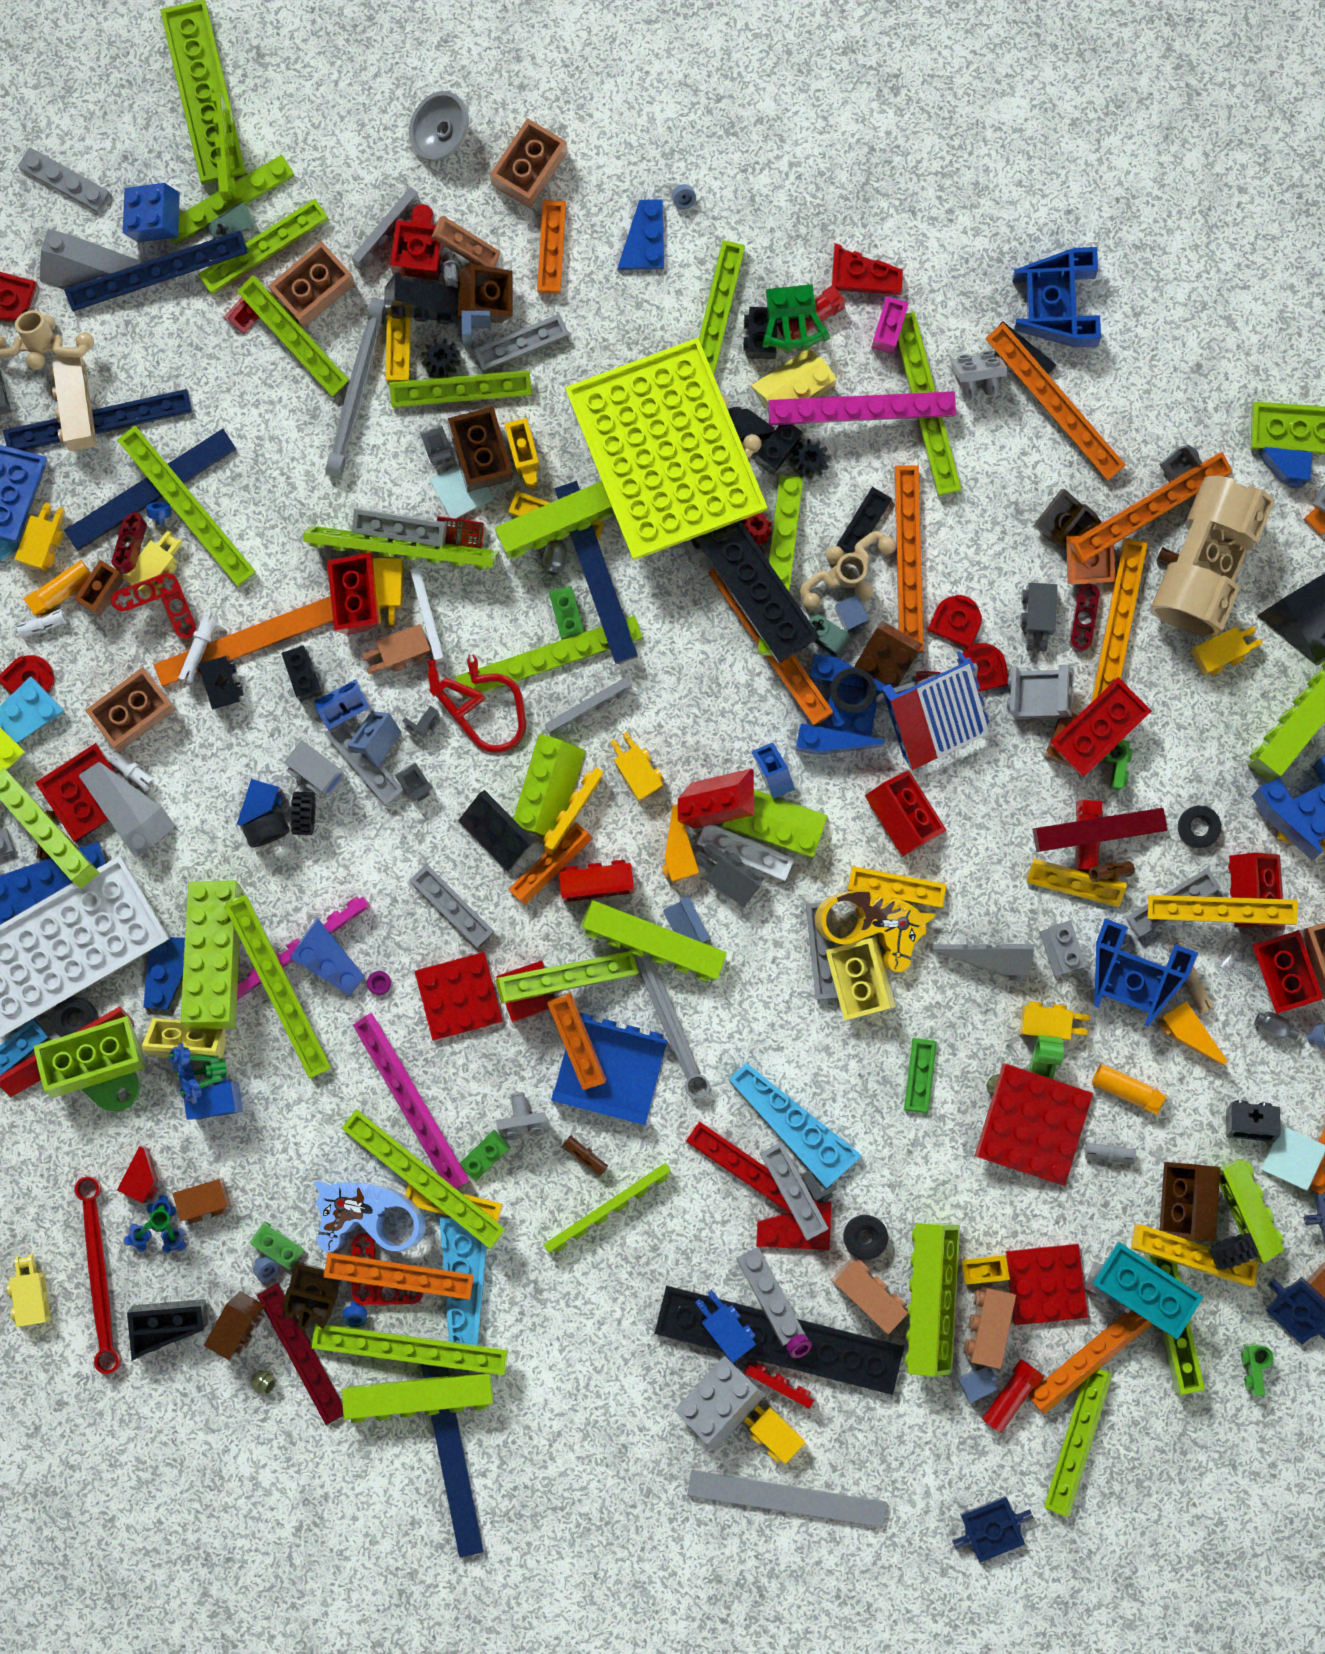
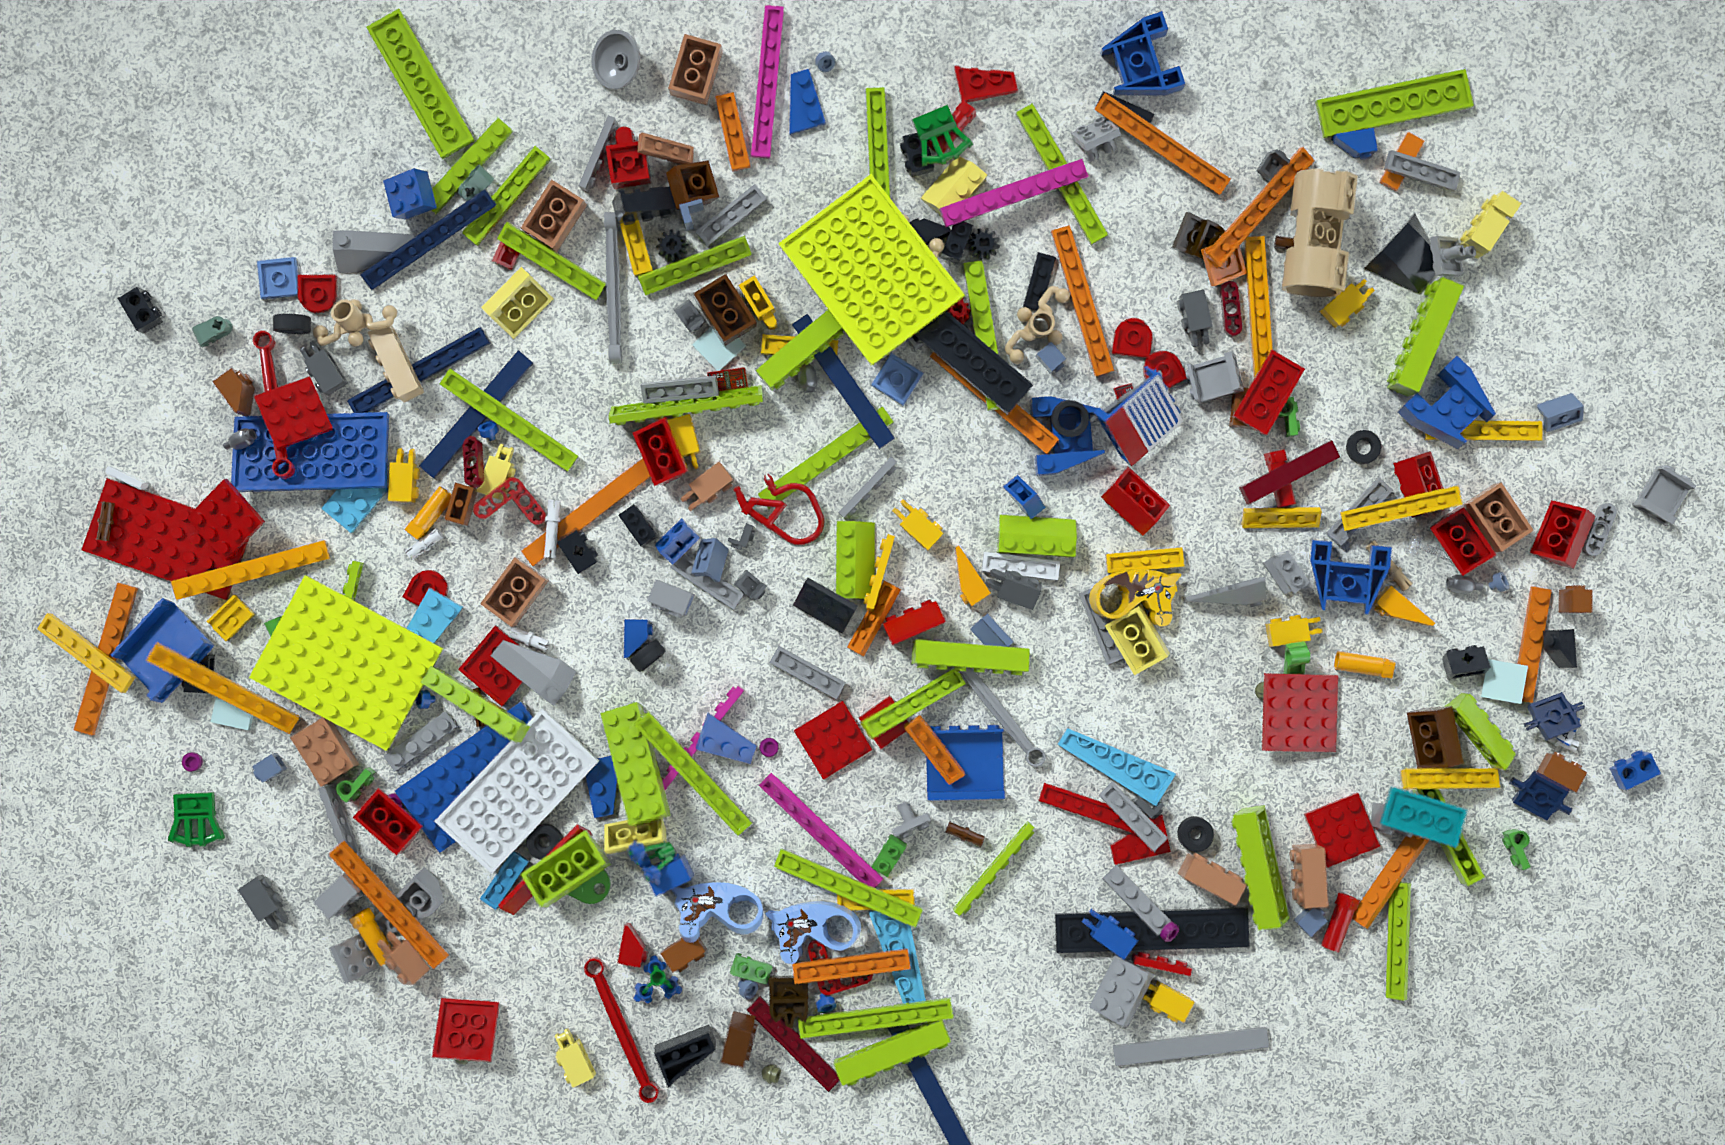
camera: 15 degrees left, 5 degrees up
(64, 179) = (332, 186): light grey plate -> none
(222, 120) = (450, 125): lime wing -> none
(238, 373) = (517, 303): none -> light yellow slope
(256, 1147) = (712, 900): none -> light blue animal
(302, 813) = (672, 634): black tyre -> none
(427, 615) = (722, 452): white tile -> none
(450, 268) = (659, 172): light grey axle -> none
(566, 612) = (829, 418): bright green plate -> none
(609, 201) = (767, 81): none -> dark pink plate
(661, 588) = (897, 379): none -> medium blue tile
(717, 799) = (989, 533): red slope -> none
(831, 637) = (1041, 379): sand green piece -> none
(888, 655) = (1089, 382): reddish brown brick -> none
(889, 325) = (1016, 119): dark pink panel -> none
(920, 1075) = (1202, 699): bright green tile -> none
(985, 1269) = (1293, 833): yellow slope -> none
(992, 1529) = (1351, 1024): dark blue plate -> none
(1110, 1152) = (1363, 717): light grey pin -> none
(1111, 871) = (1306, 501): reddish brown pin -> none
(1233, 1251) = (1480, 767): black tyre -> none

